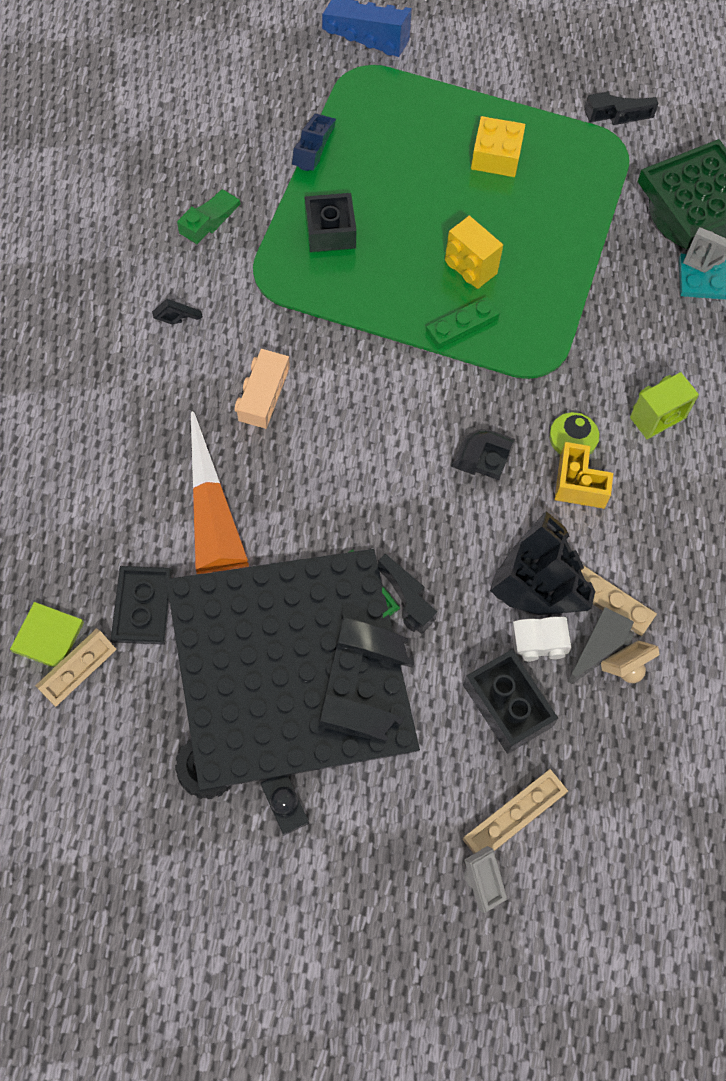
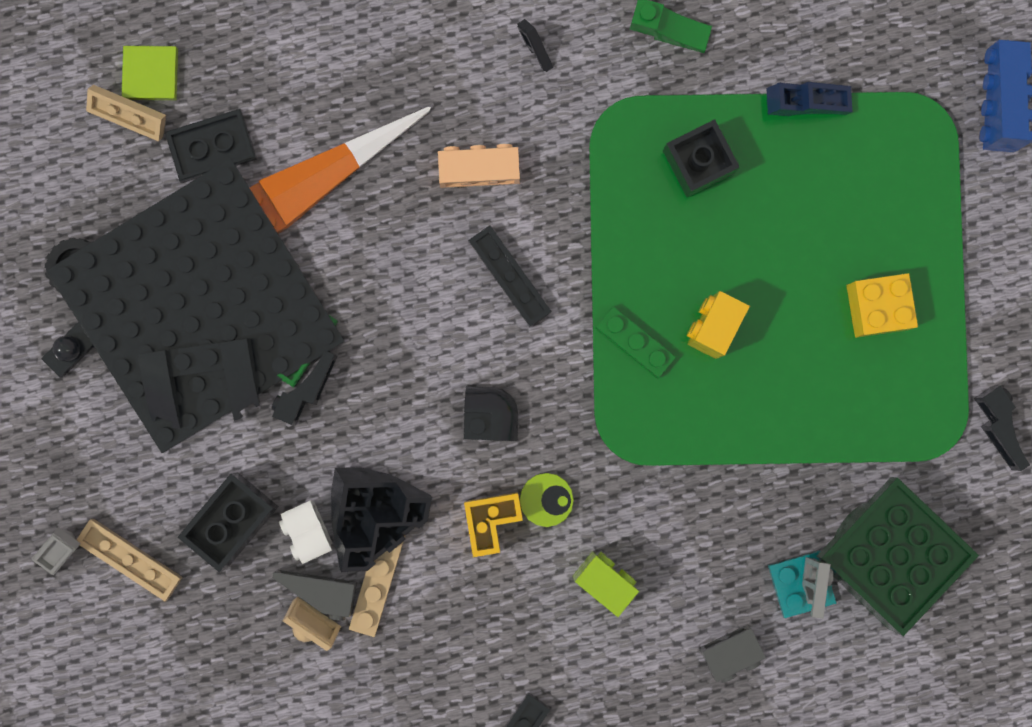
camera: 70 degrees right, 20 degrees up
(368, 398) = (509, 276): none -> black plate

